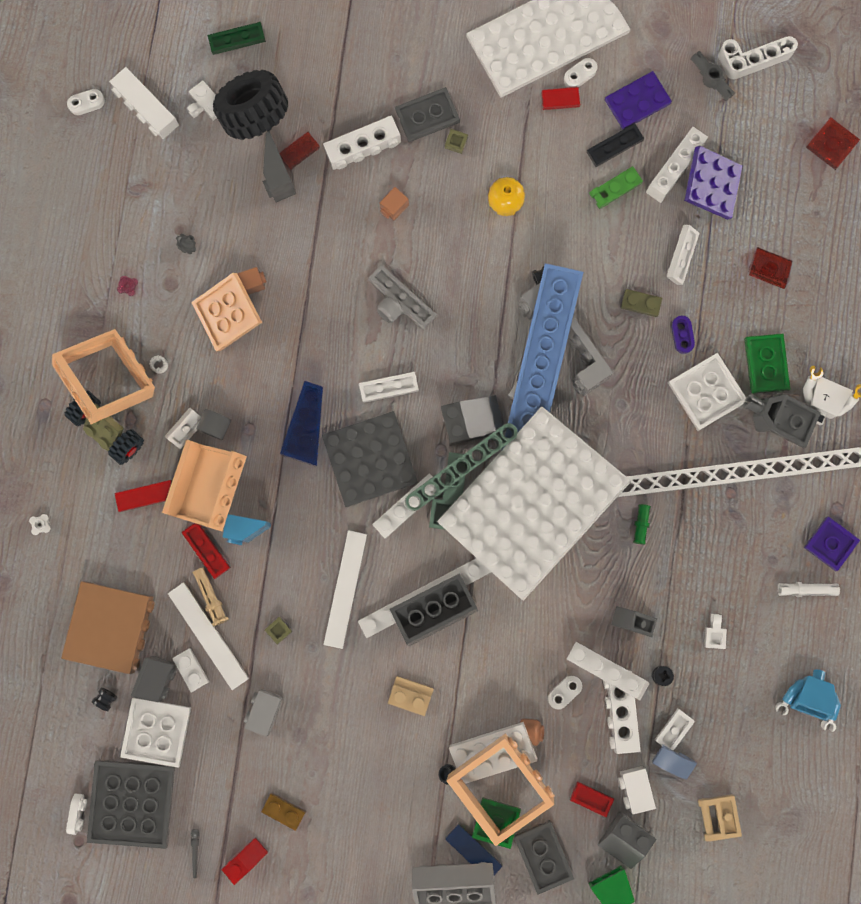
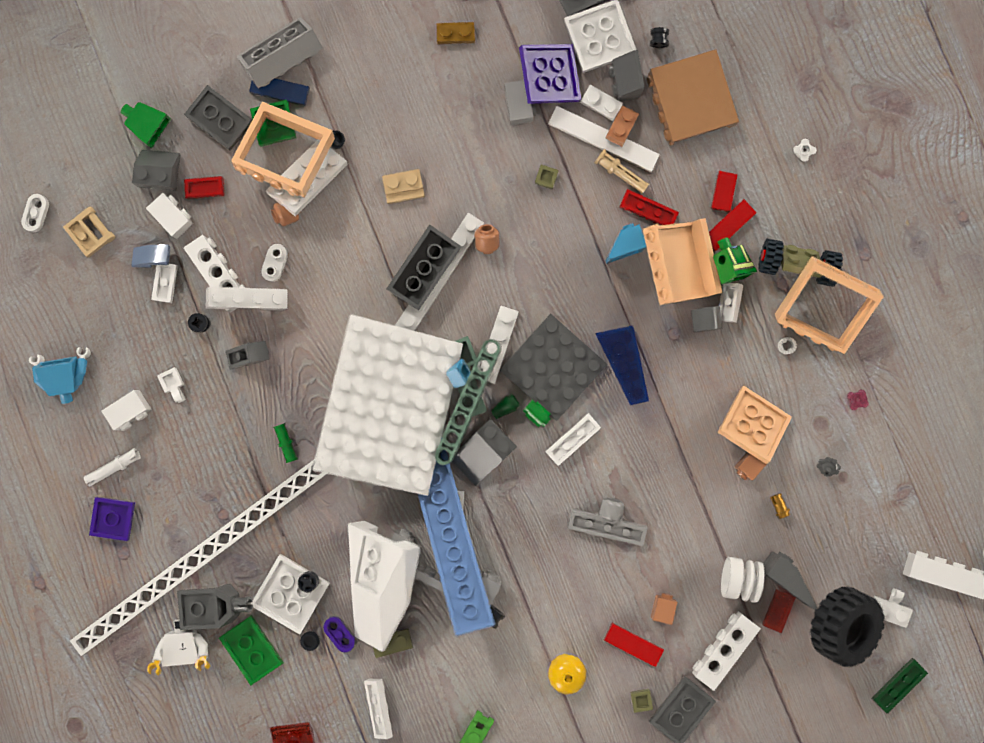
camera: 145 degrees right, 5 degrees up
(131, 528) = (724, 191): none -> red tile
(161, 460) = (733, 262): none -> green torso
(185, 637) = (622, 126): none -> nougat plate
(220, 722) = (550, 73): none -> plate
(246, 234) = (780, 506): none -> pearl gold pin
(314, 191) = (743, 579): none -> white wheel
(345, 589) = (510, 244): white tile -> none
(363, 604) = (487, 239): none -> nougat head
(407, 426) = (537, 414): none -> green brick
(430, 447) = (505, 406): none -> dark green cone
(436, 190) = (633, 644): none -> red tile
(455, 496) = (458, 373): none -> dark azure slope
(623, 356) = (380, 582): none -> white wedge
(689, 390) = (305, 584): none -> black wheel
(711, 343) = (309, 640): none -> black plate
(762, 866) = (32, 213): none -> white plate
(769, 632) = (127, 410): none -> white brick

